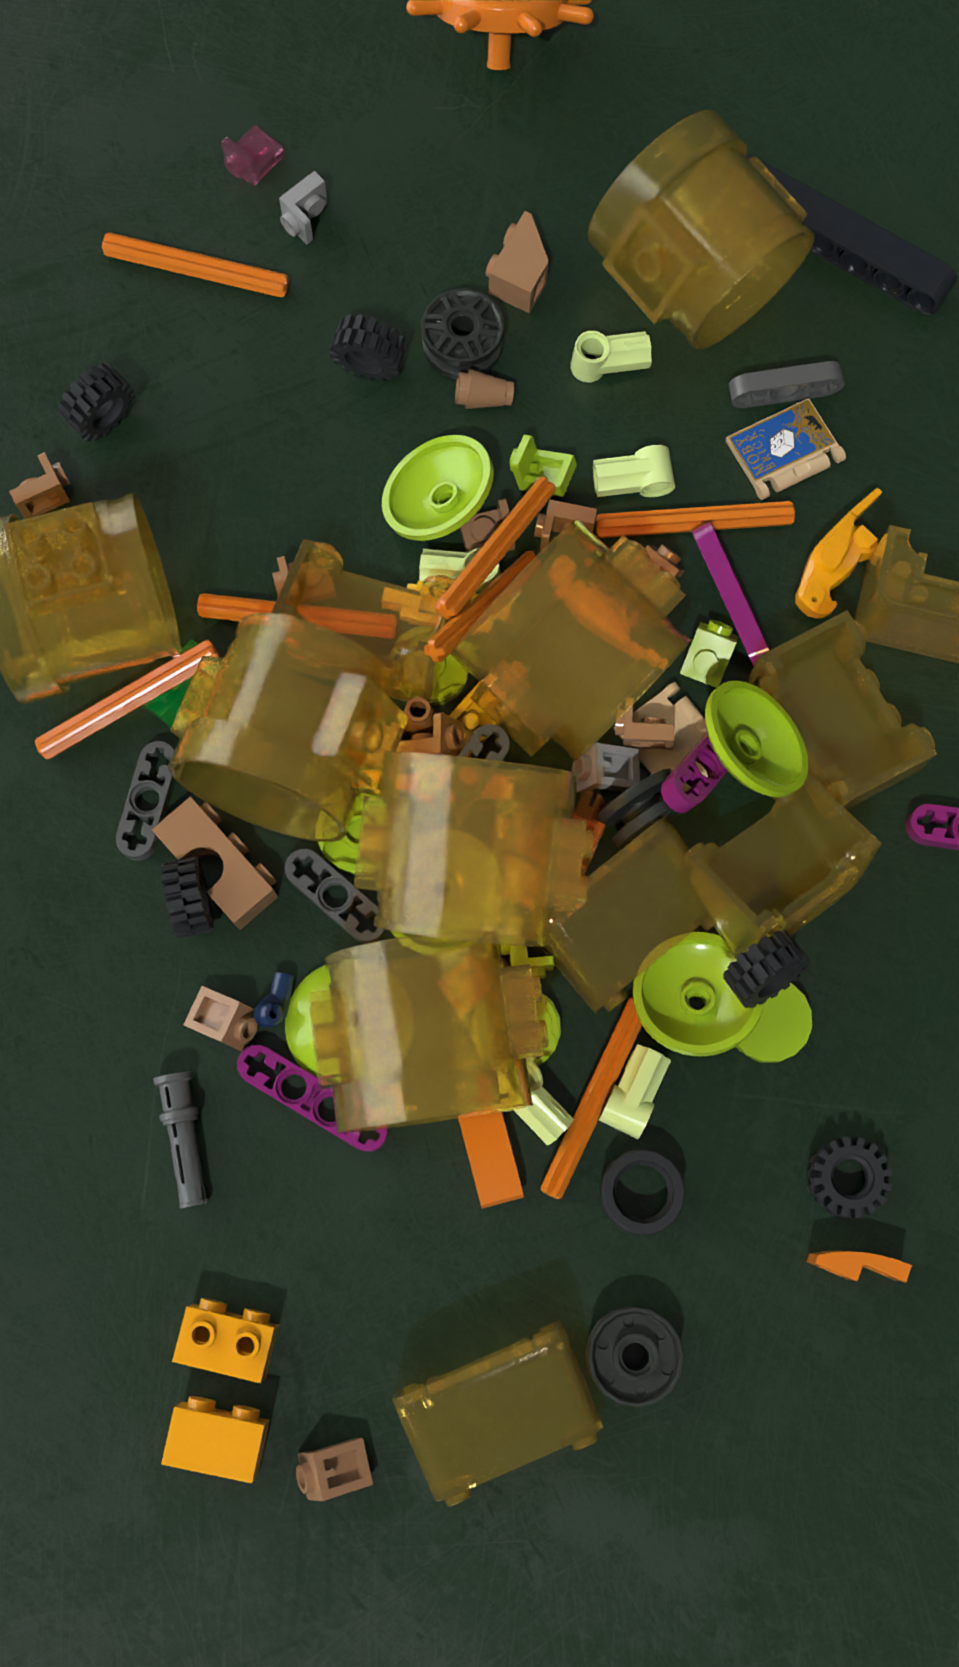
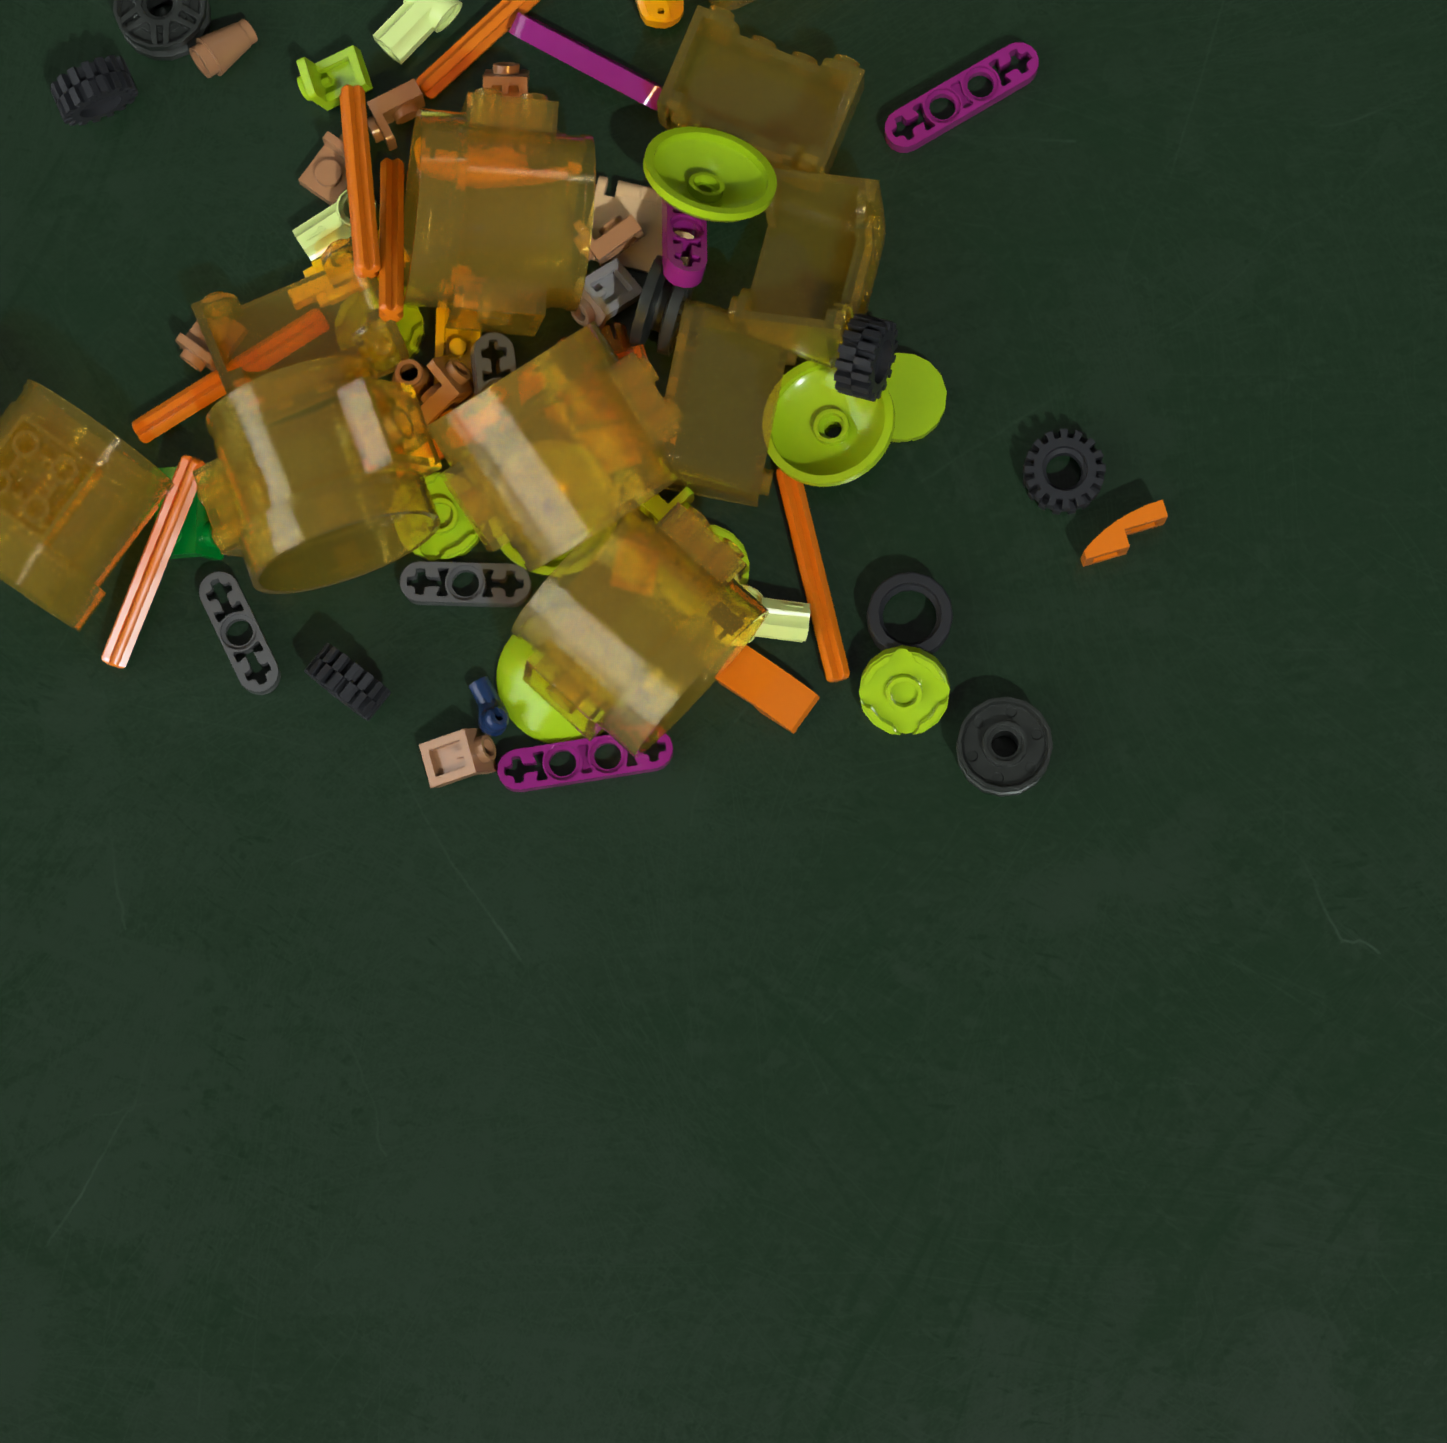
camera: 35 degrees left, 5 degrees up
(179, 1118) = (490, 862): dark grey pin -> none
(216, 1439) = (732, 1073): light orange brick -> none
(226, 1341) = (677, 997): light orange brick -> none
(242, 888) = (305, 626): medium nougat arch -> none
(333, 1470) = (841, 1023): medium nougat bracket -> none
(437, 487) = (245, 162): lime dish -> none
(498, 1413) = (933, 873): clear yellow windscreen -> none
(592, 1247) = (904, 690): none -> lime tile
(632, 1099) = (843, 551): yellowish green piece -> none
(709, 653) = (610, 125): lime bracket -> none

